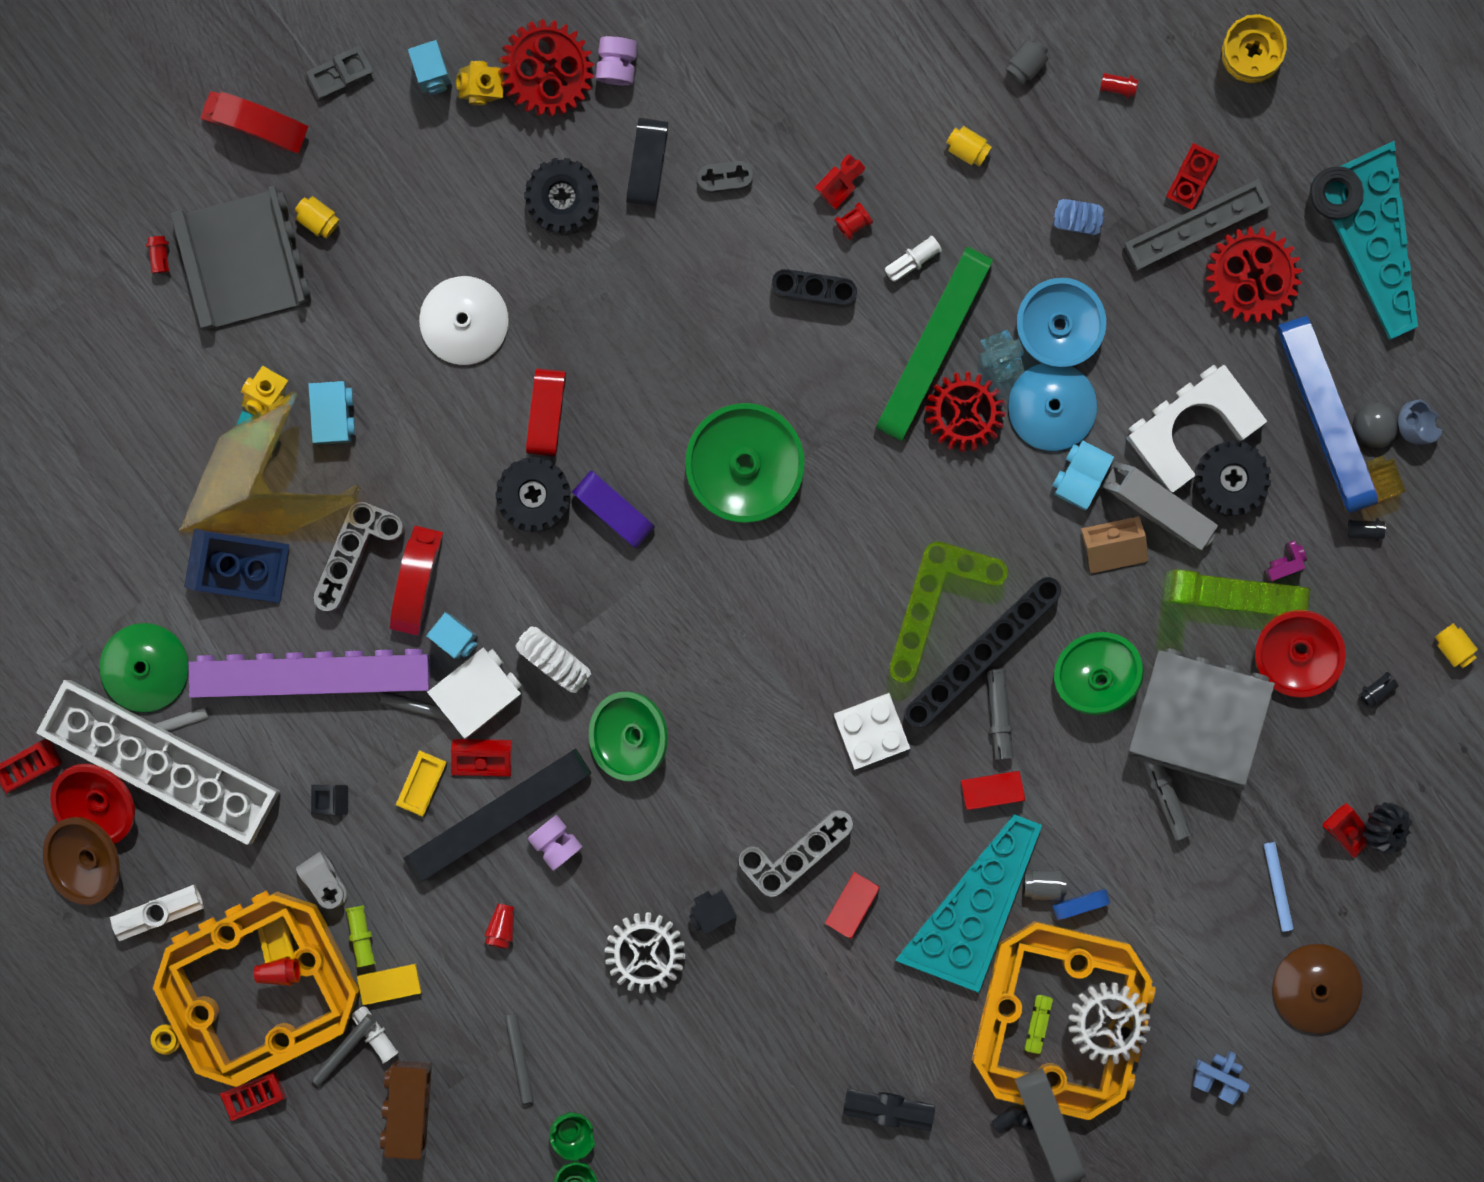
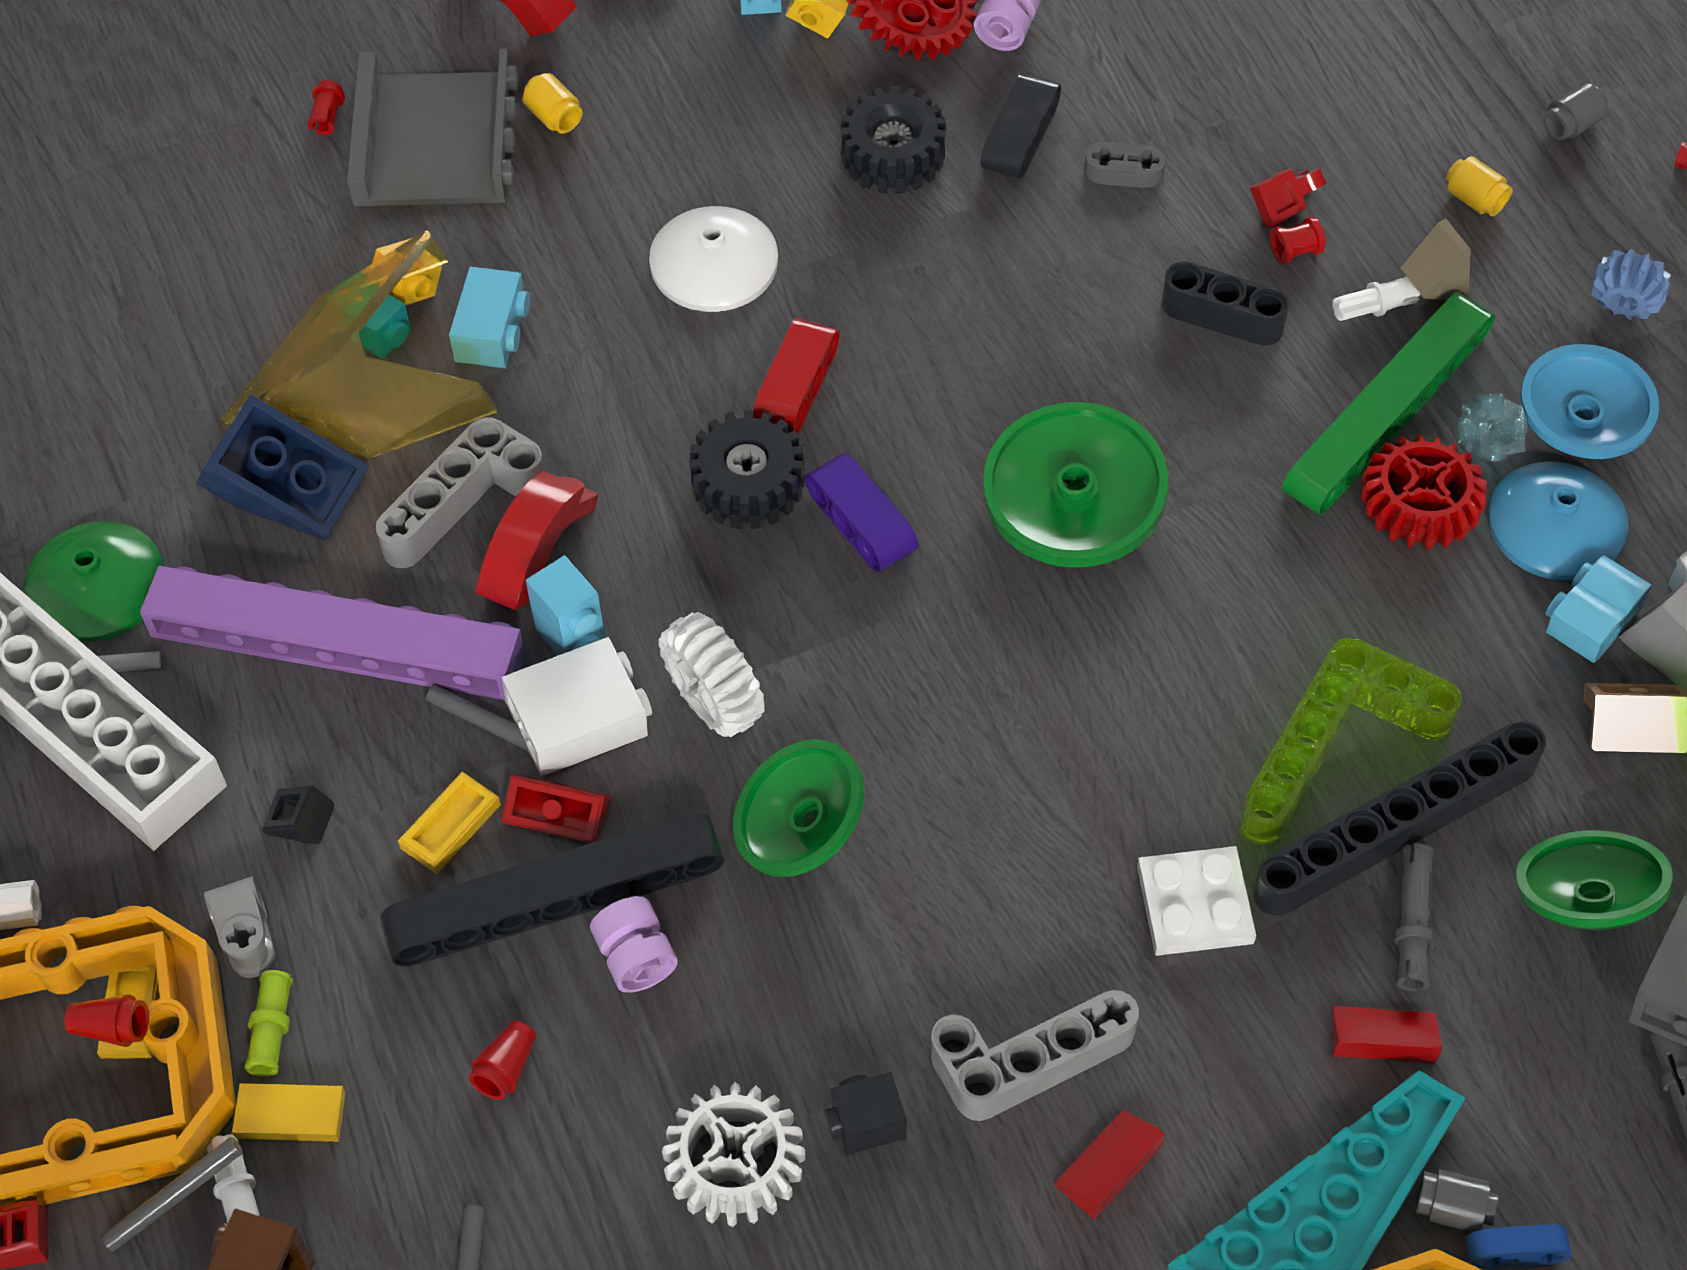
camera: 10 degrees right, 30 degrees down
(949, 235) = (1440, 264): none -> dark tan slope

